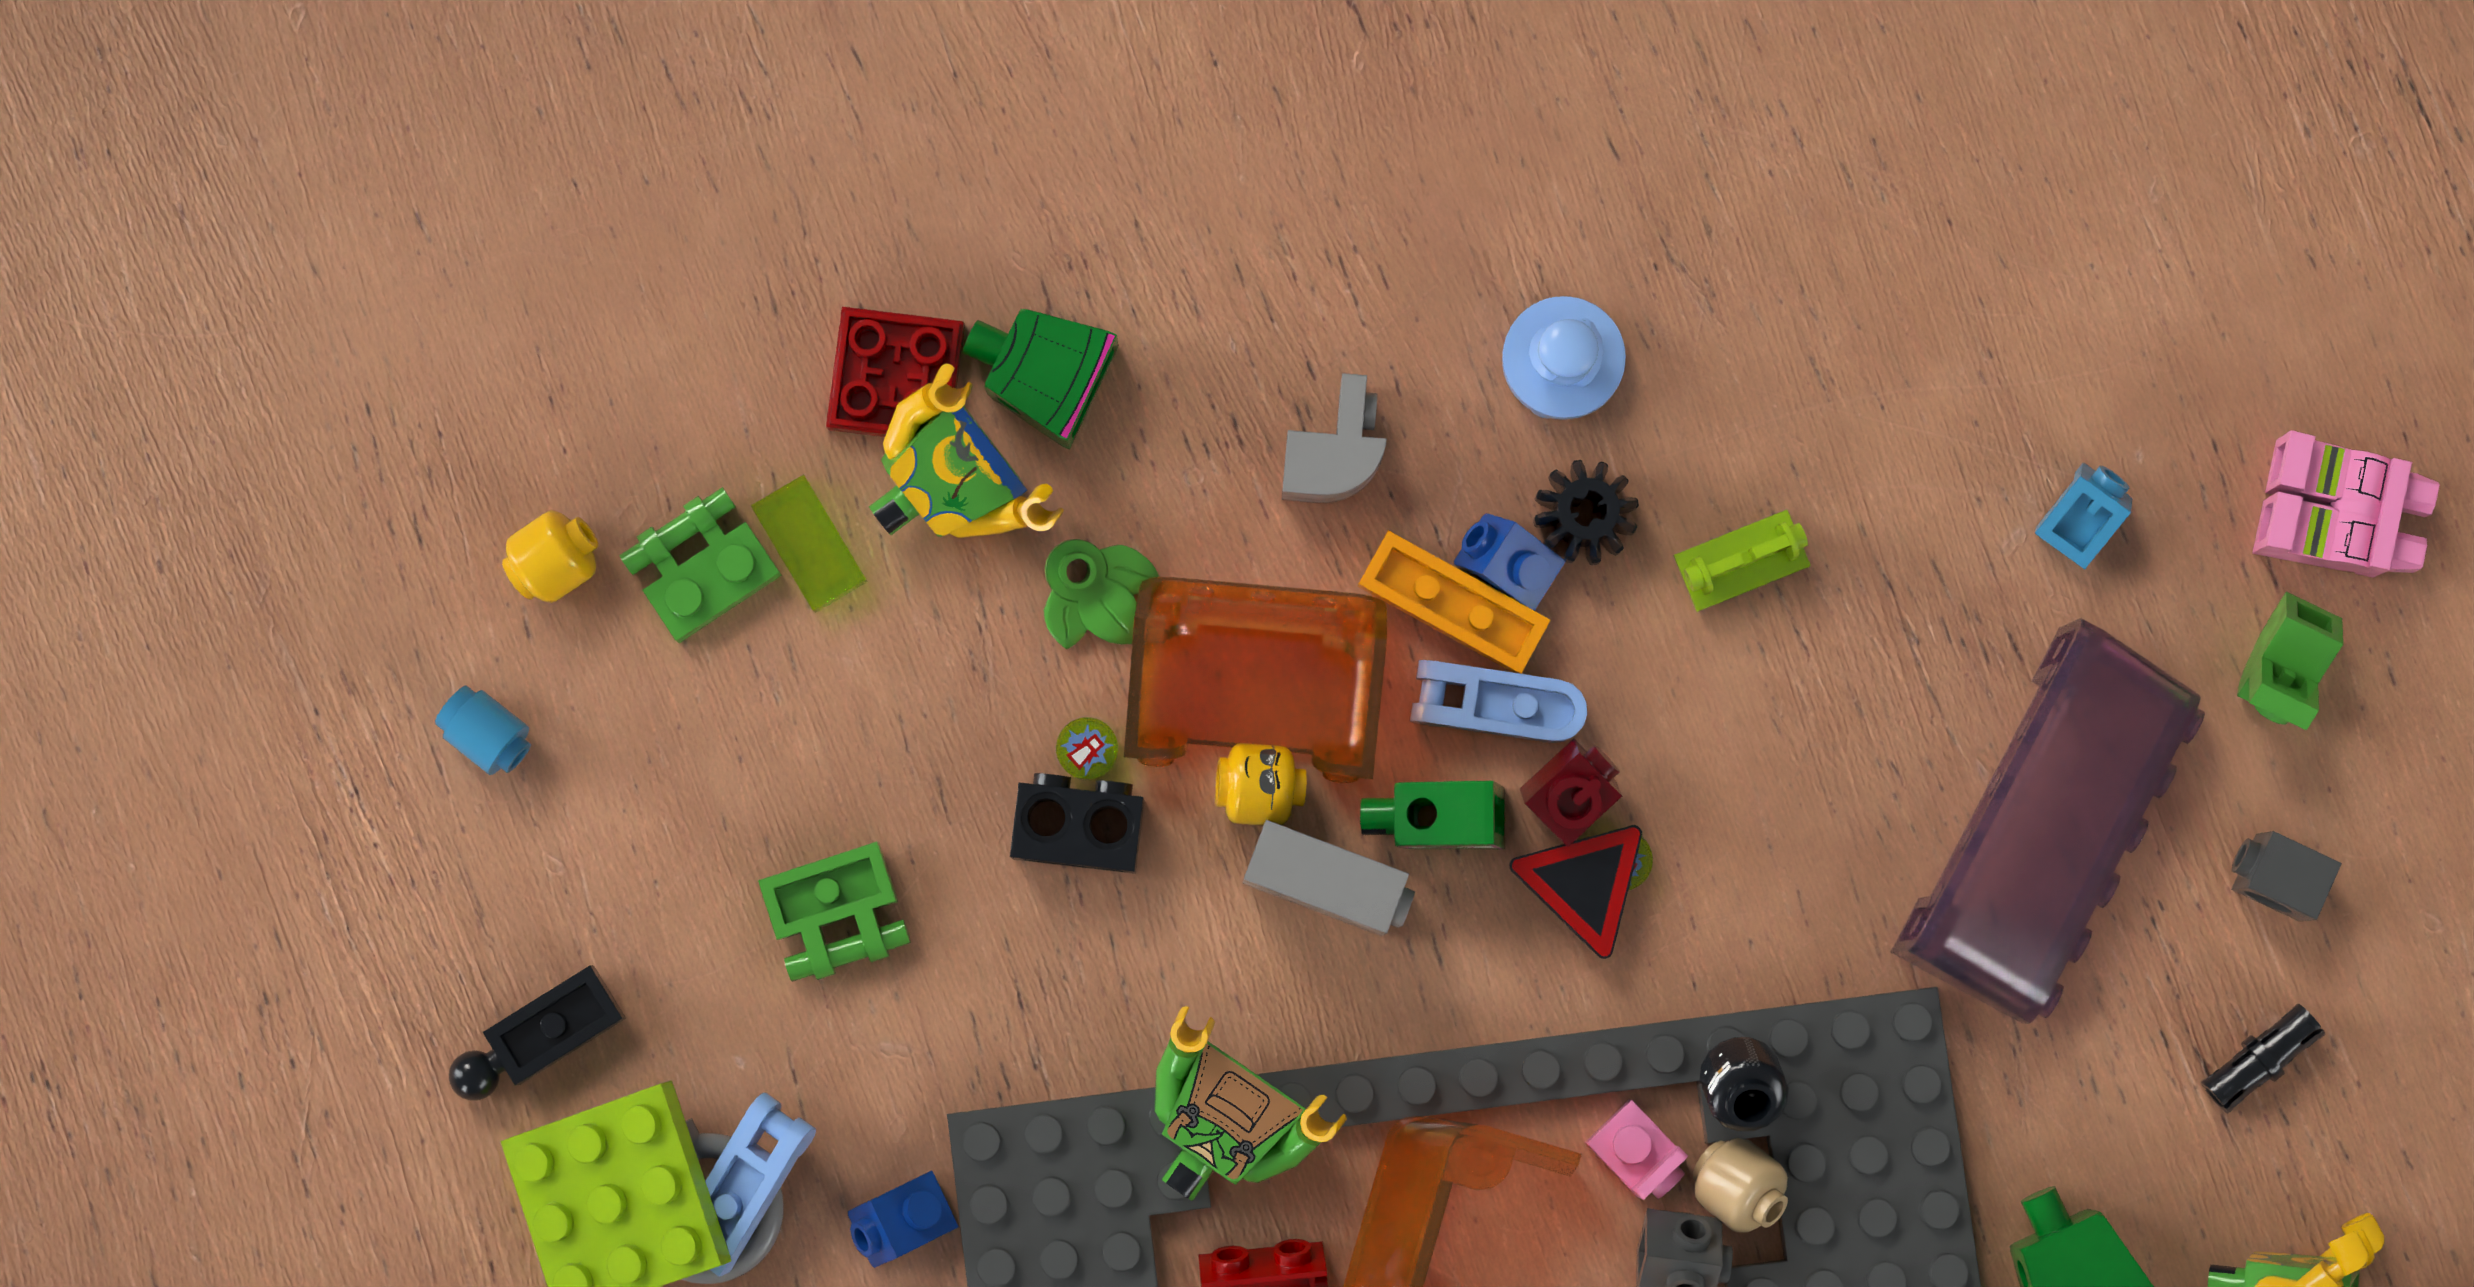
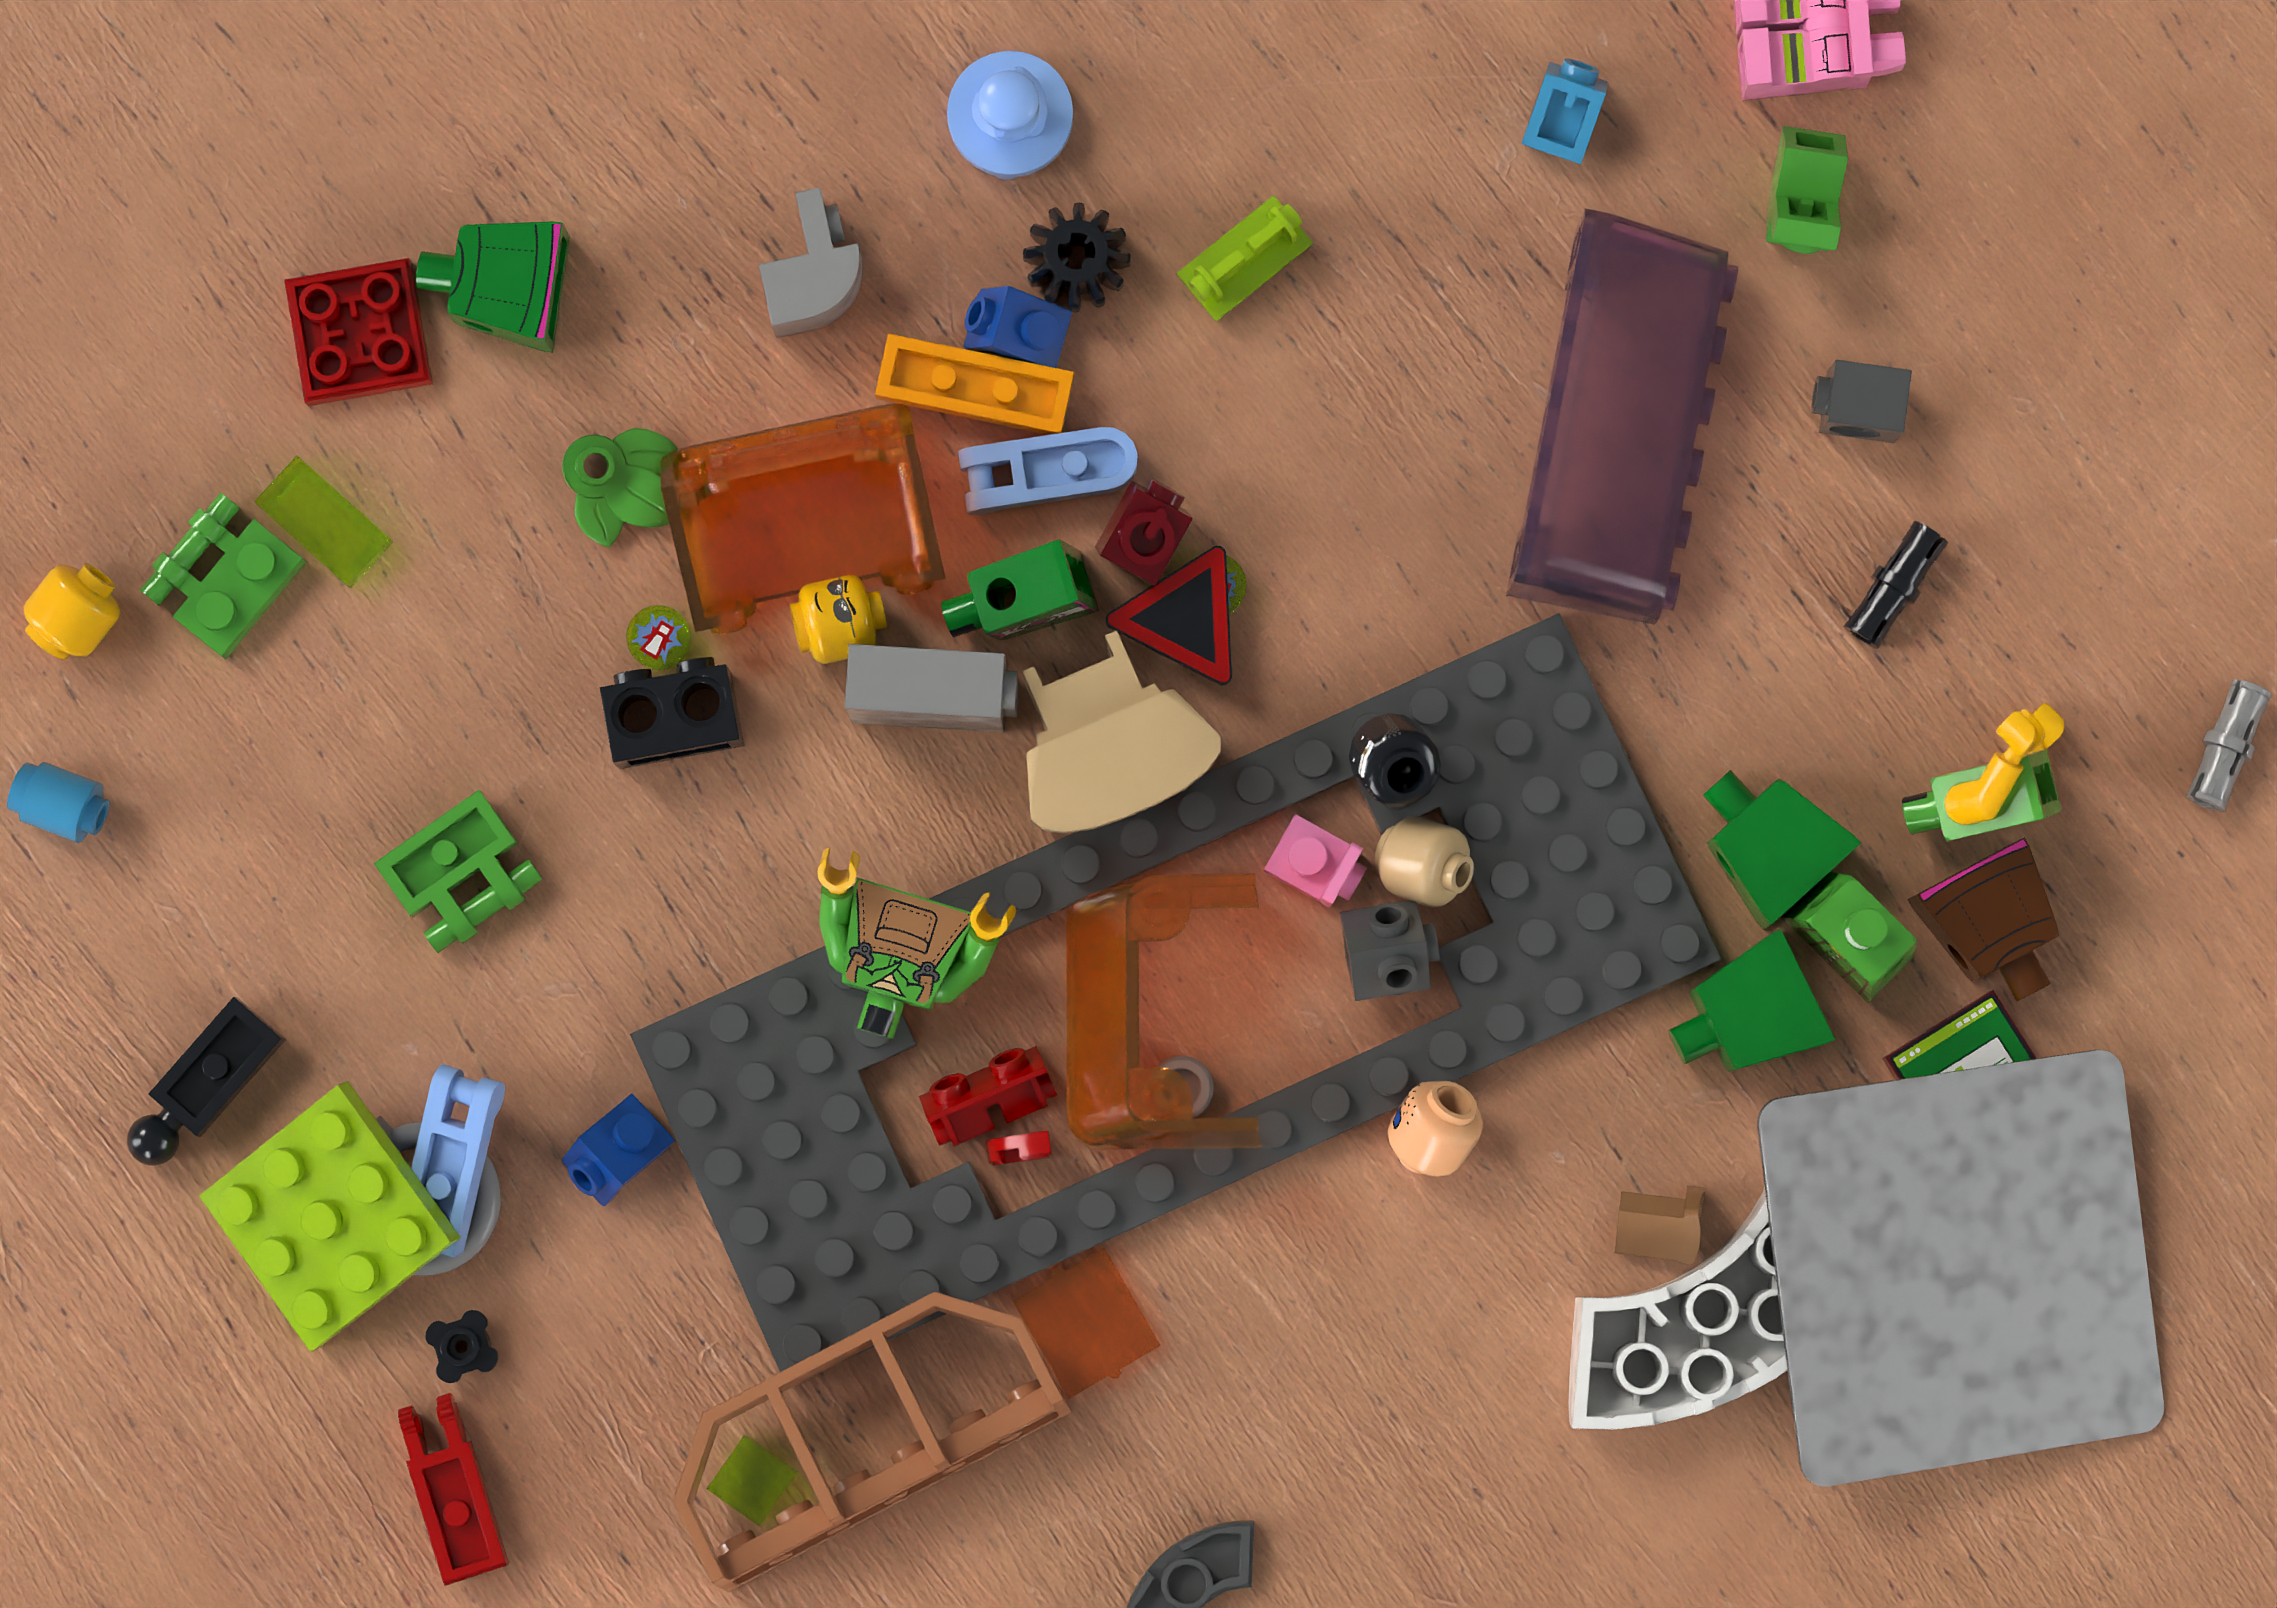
camera: 15 degrees left, 0 degrees up
(952, 470) = (441, 404): torso -> none
(1480, 988) = (1110, 745): none -> tan piece

